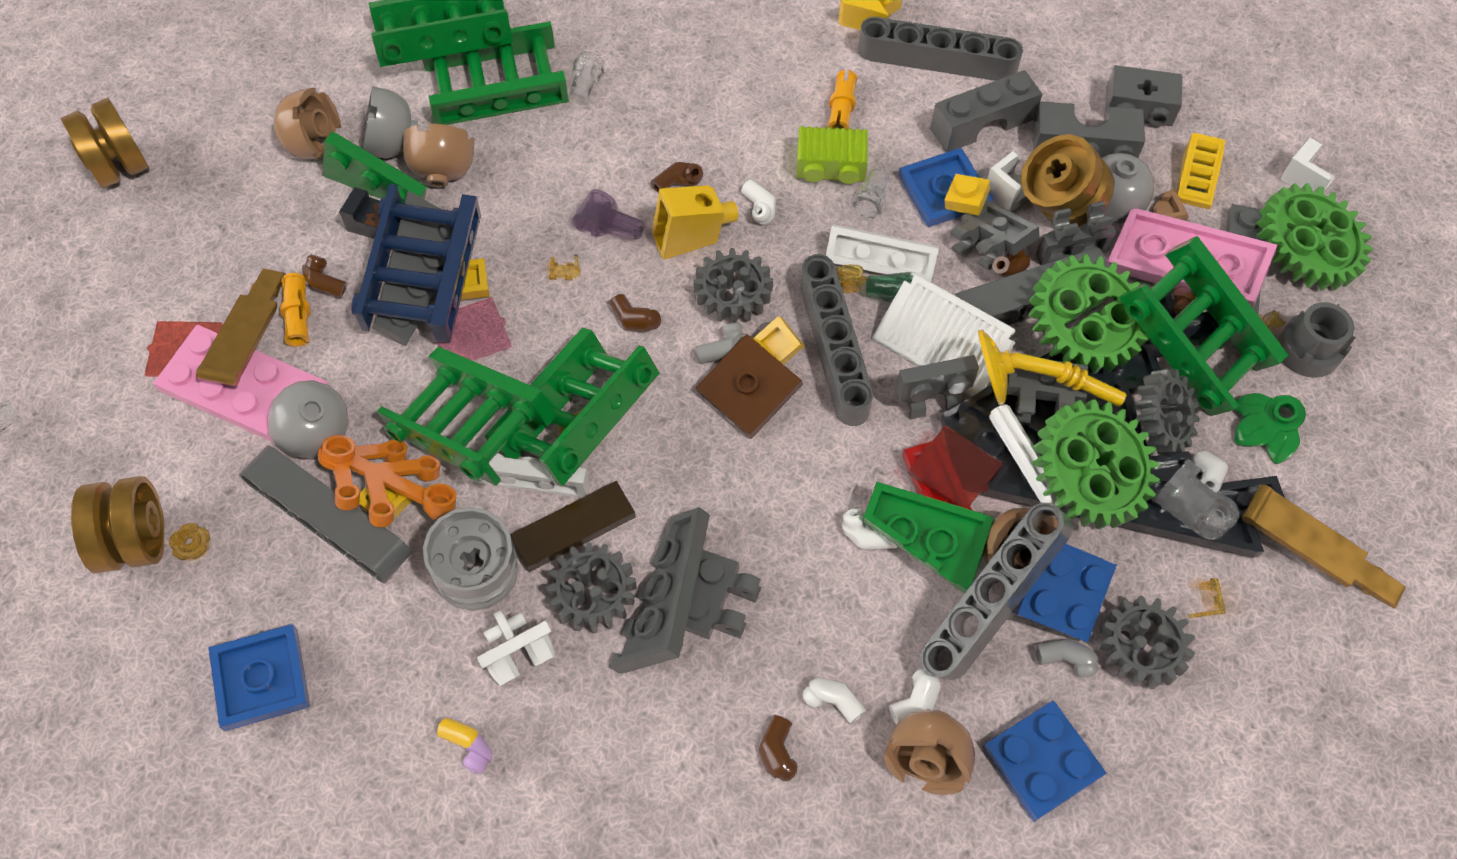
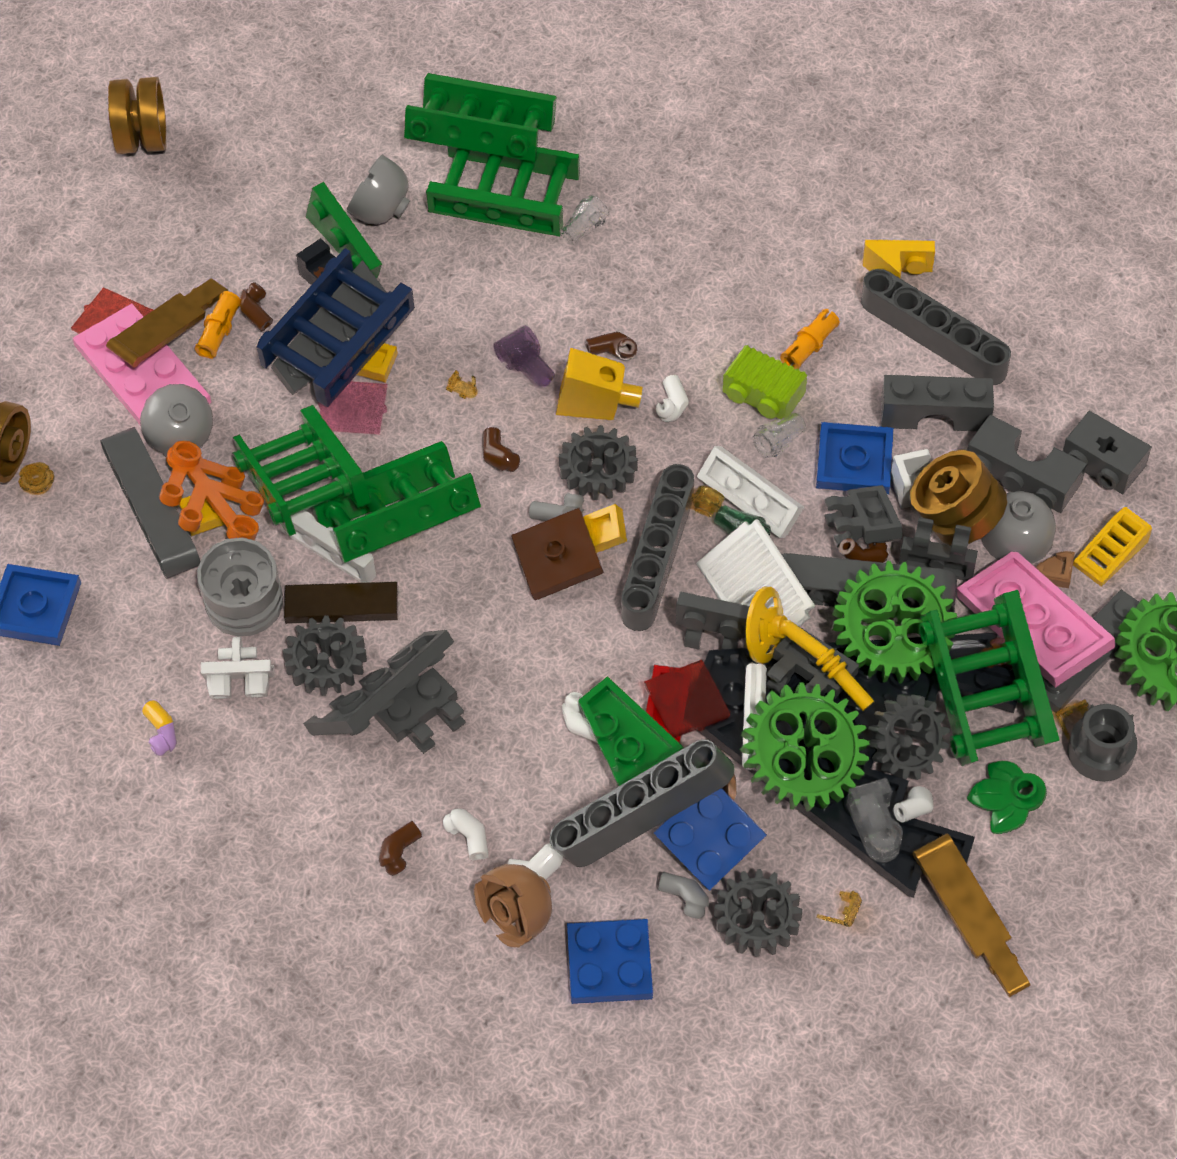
camera: 30 degrees right, 5 degrees down
(303, 119) = (314, 160): medium nougat cylinder -> none
(438, 154) = (409, 238): medium nougat cylinder -> none
(967, 194) = (863, 471): yellow plate -> none

